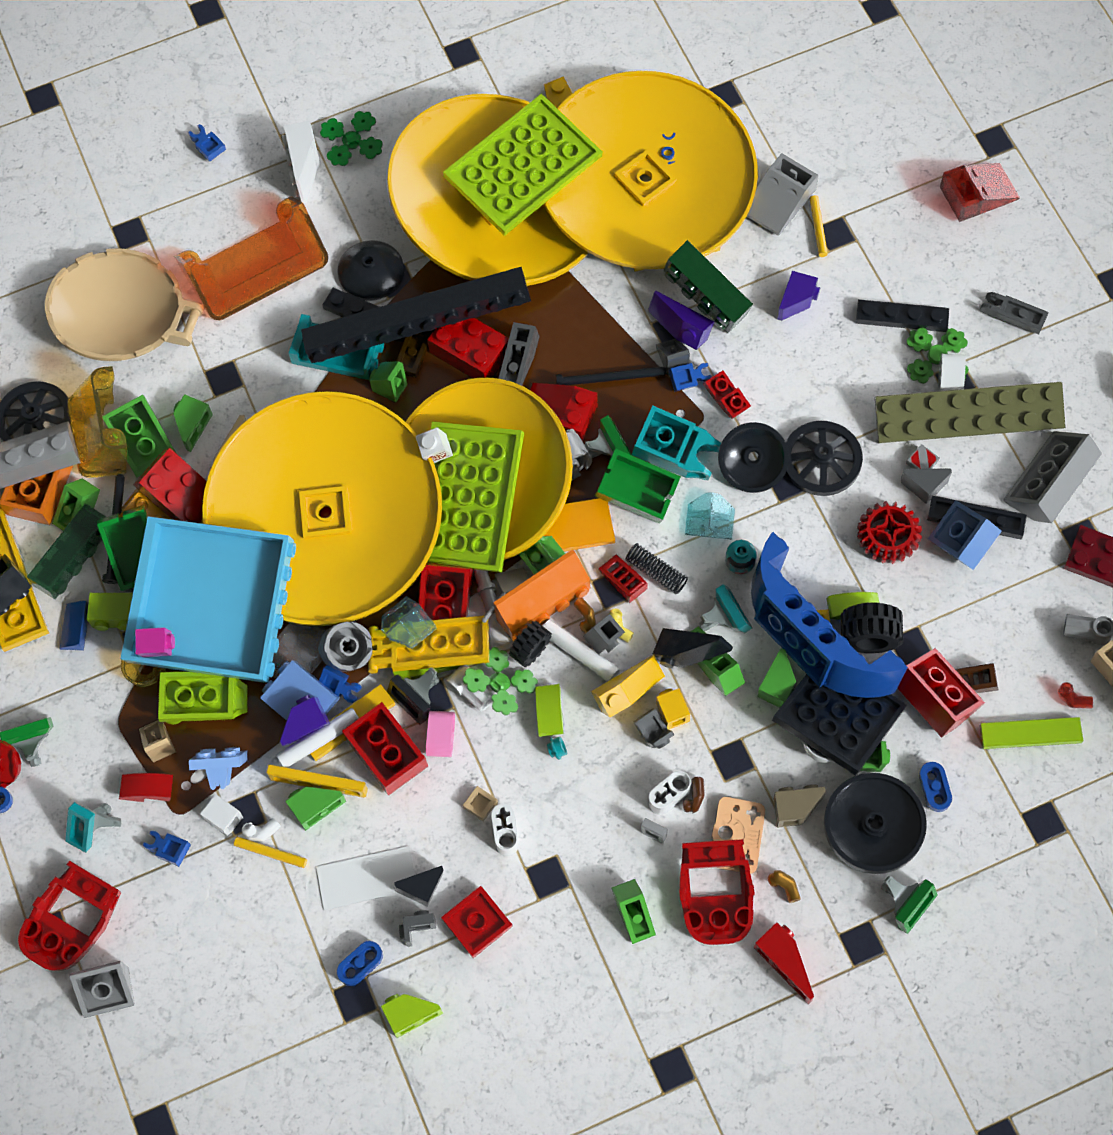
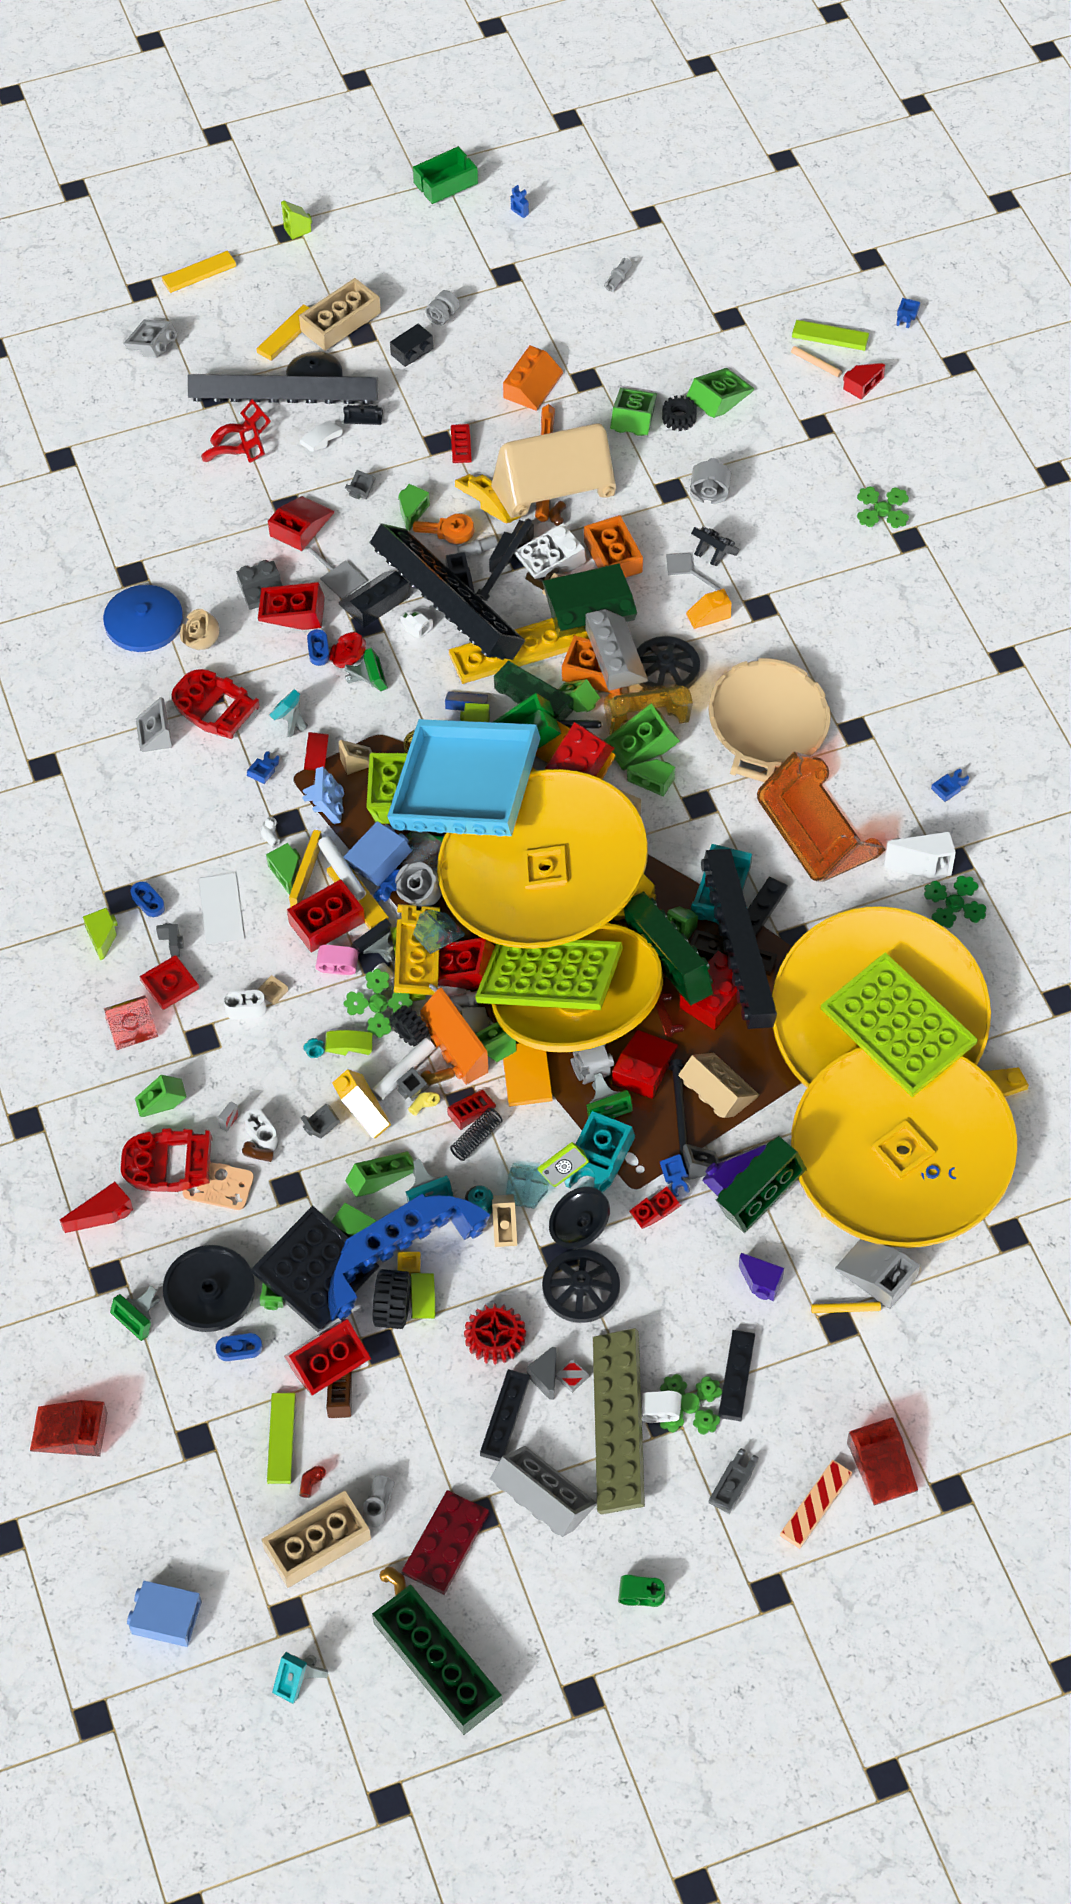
camera: 90 degrees right, 10 degrees down
(154, 642) = (425, 736): dark pink brick -> none
(221, 815) = (285, 803): white brick -> none
(270, 852) = (251, 840): yellow bar -> none
(303, 720) = (352, 850): dark purple slope -> none
(374, 279) = (794, 918): black dish -> none
(420, 886) = (202, 941): black slope -> none
(434, 445) = (592, 939): white brick -> none
(456, 361) = (677, 957): none -> dark green brick
(519, 353) = (699, 1027): dark grey slope -> none
(537, 957) = (130, 1022): none -> clear red bracket
(583, 340) = (717, 1084): none -> tan slope
(637, 486) = (553, 1114): green piece -> none
(672, 708) = (339, 1138): yellow brick -> none
(688, 648) = (391, 1145): black slope -> none
(698, 471) = (563, 1164): none -> slope
(755, 529) = (504, 1220): none -> tan slope
(787, 882) = (169, 1218): pearl gold arm -> none
(795, 806) = (234, 1229): dark tan slope -> none
(964, 534) = (481, 1395): medium blue slope -> none
(1025, 245) = (816, 1504): none -> tile
(1059, 954) = (70, 1428): none -> clear red slope

